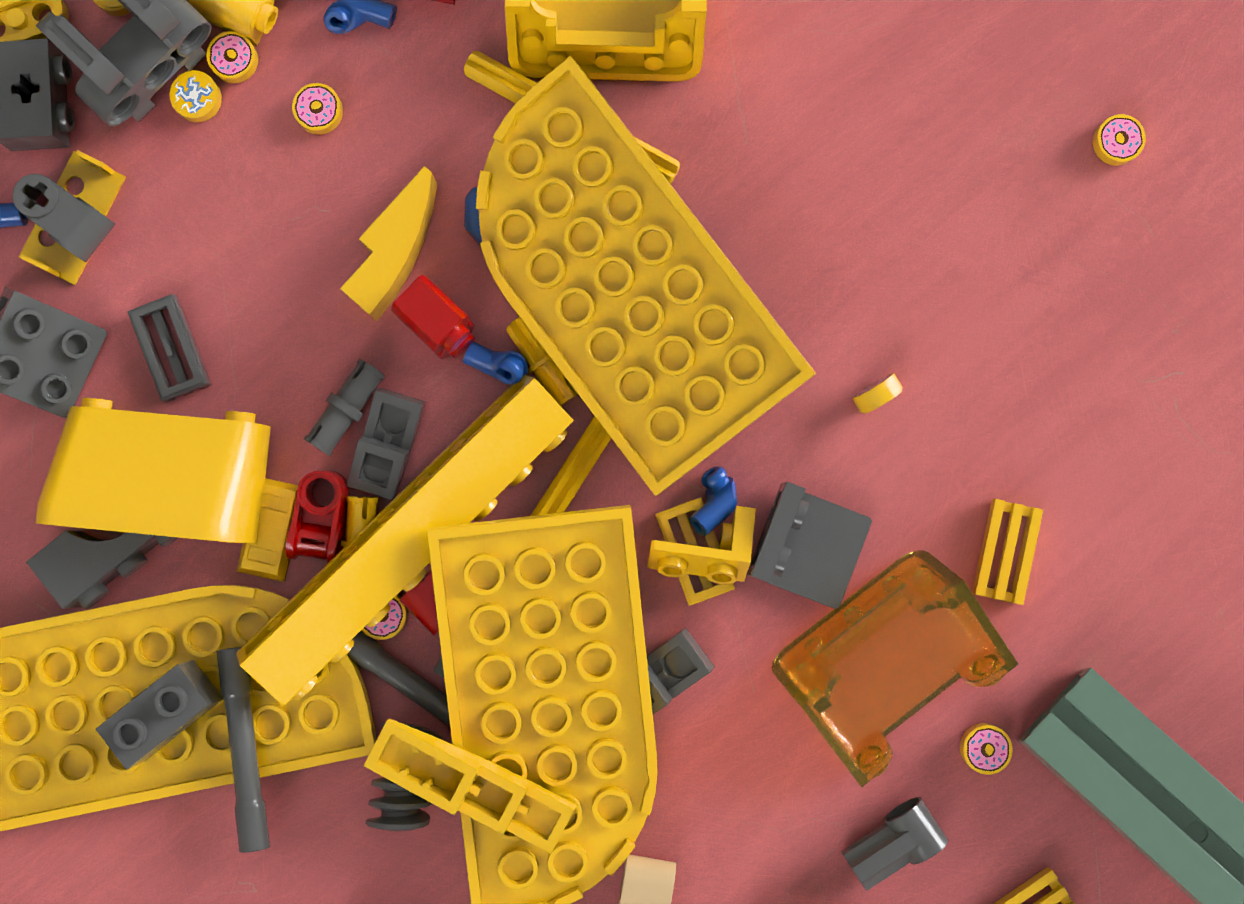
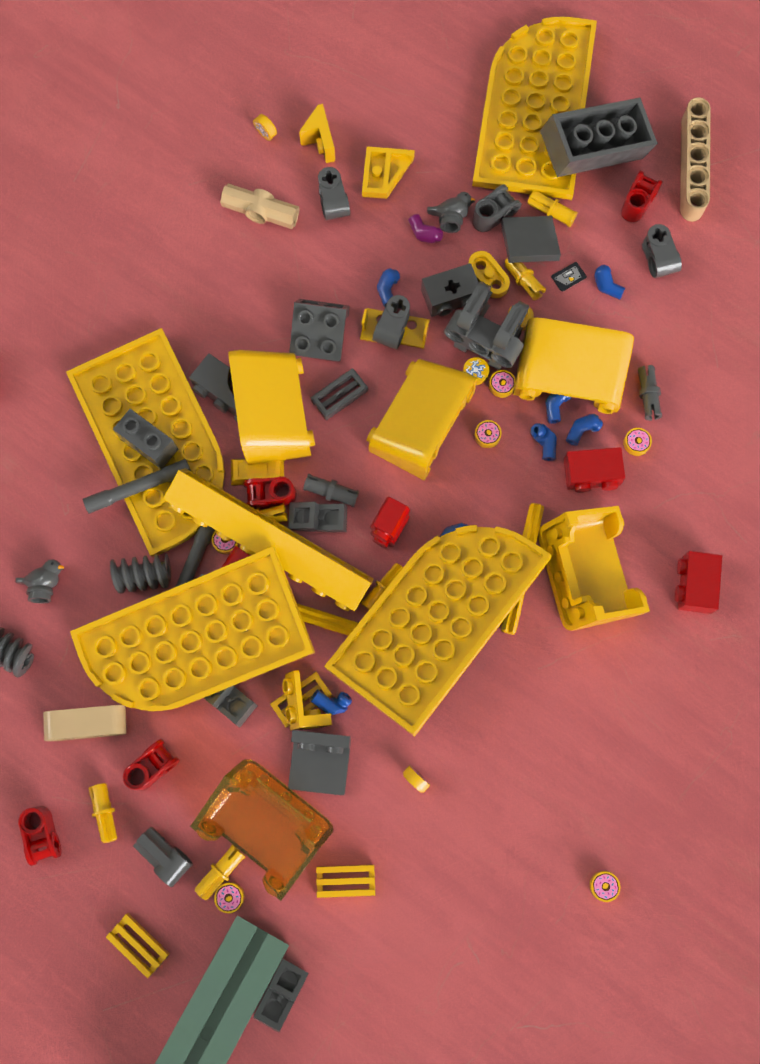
camera: 80 degrees right, 10 degrees down
(253, 210) = (421, 416): none -> yellow windscreen
(395, 246) = (424, 492): yellow slope -> none
(469, 784) = (143, 607): yellow slope -> none
(501, 365) = (376, 567): blue arm -> none
(741, 831) = (151, 765): none -> red piece
(944, 755) = (219, 872): none -> yellow axle
(1159, 698) = (280, 995): none -> dark grey slope

